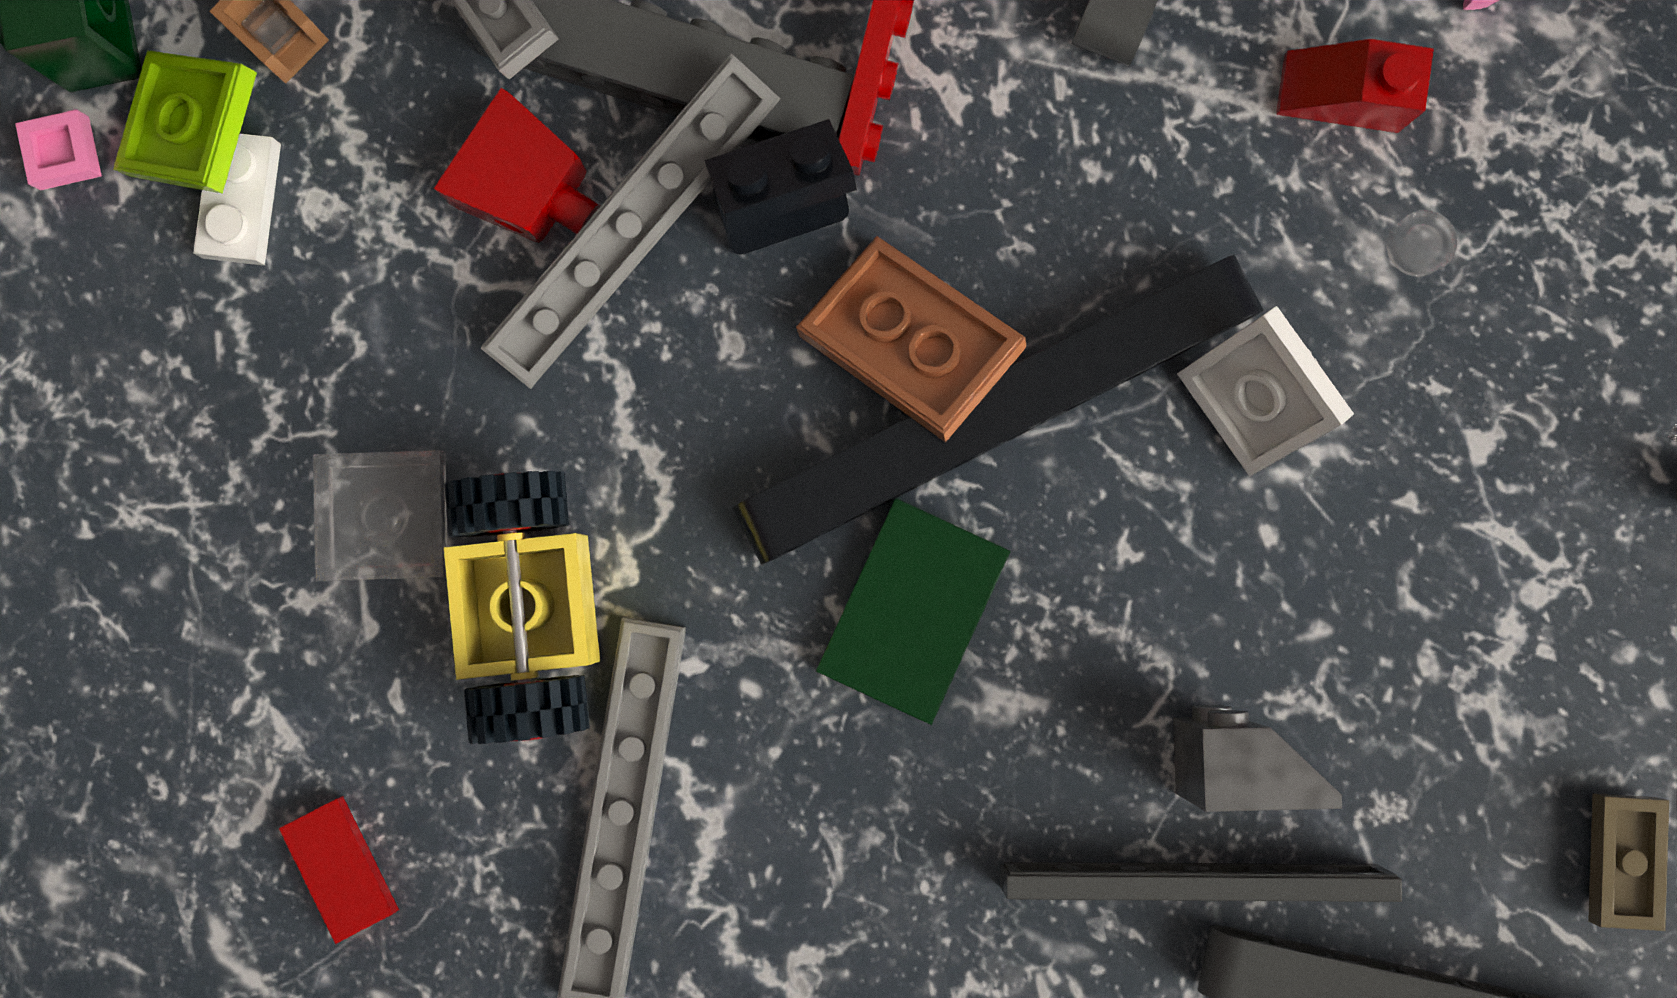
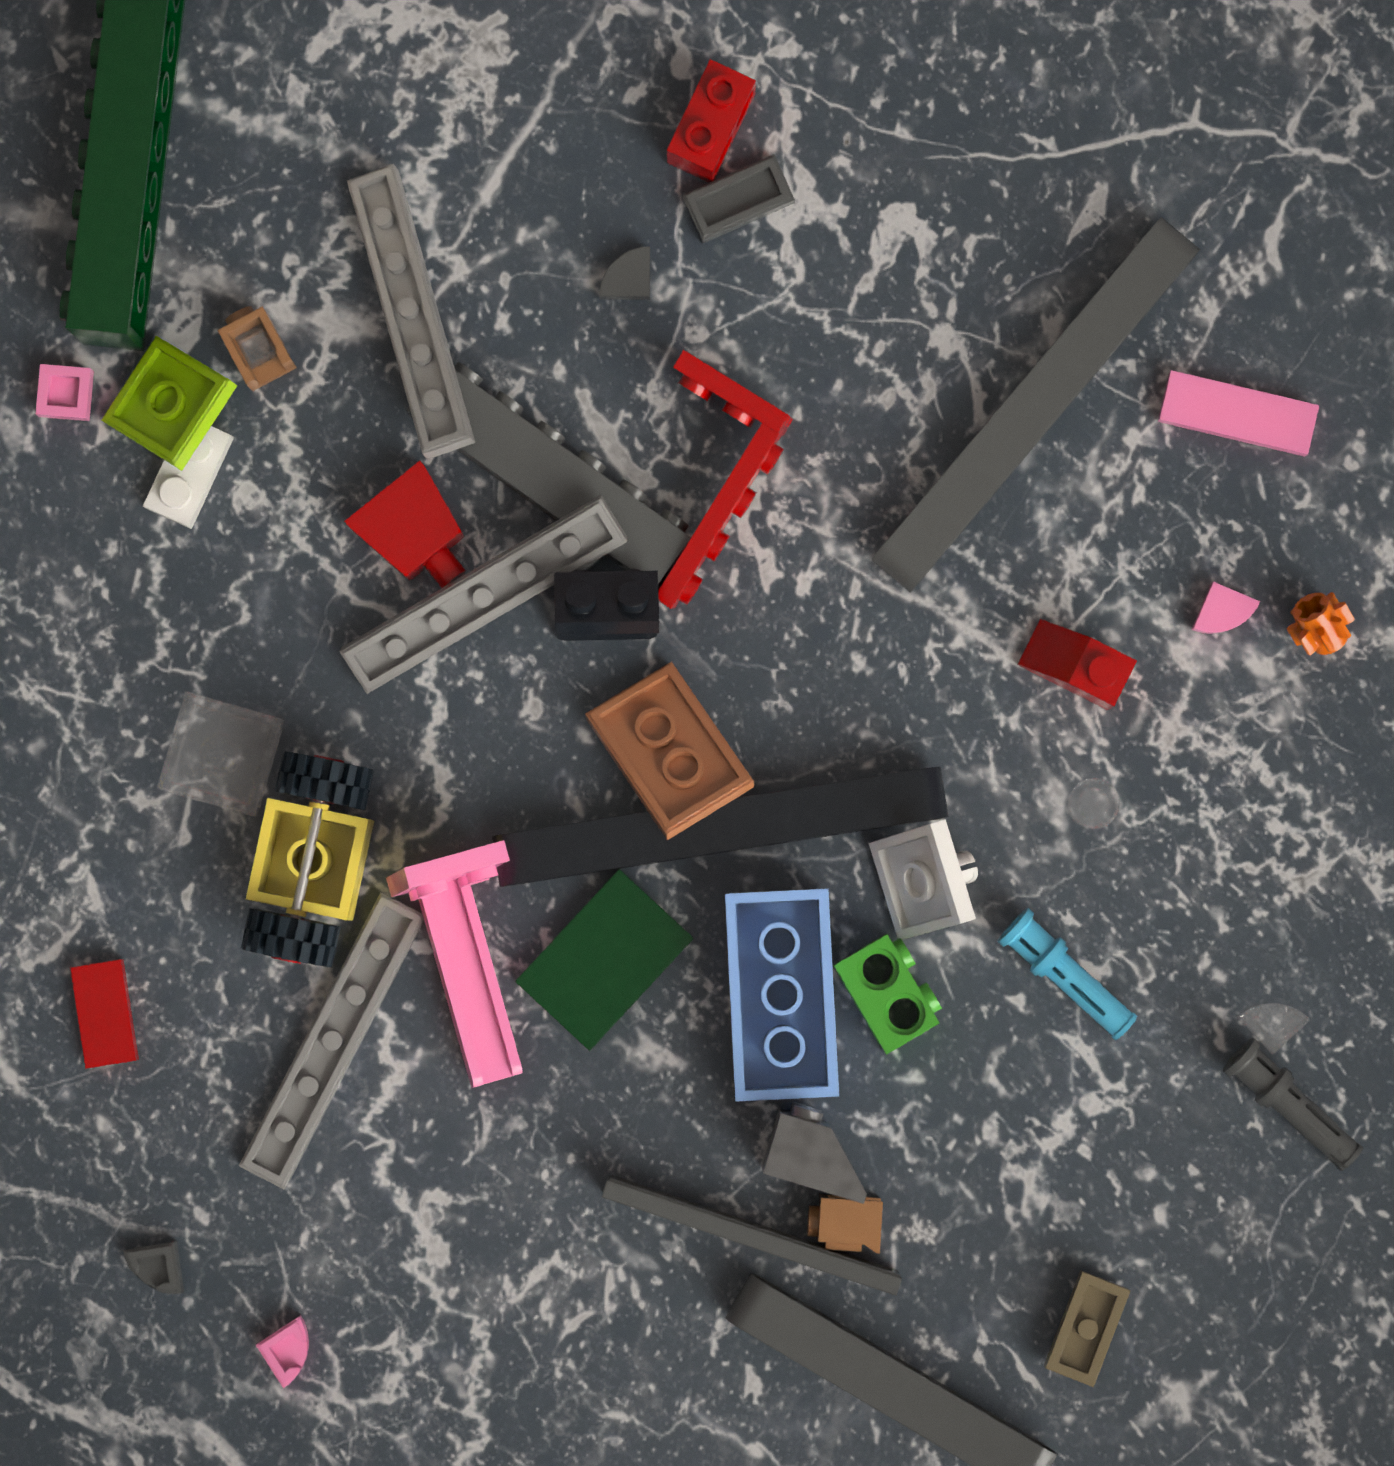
camera: 25 degrees right, 0 degrees up
(742, 657) = (464, 956): none -> bright pink bracket
(1142, 585) = (781, 995): none -> light blue brick
(1252, 555) = (876, 999): none -> bright green brick
(1307, 836) = (846, 1223): none -> medium nougat window
(1430, 440) = (1050, 958): none -> medium azure pin

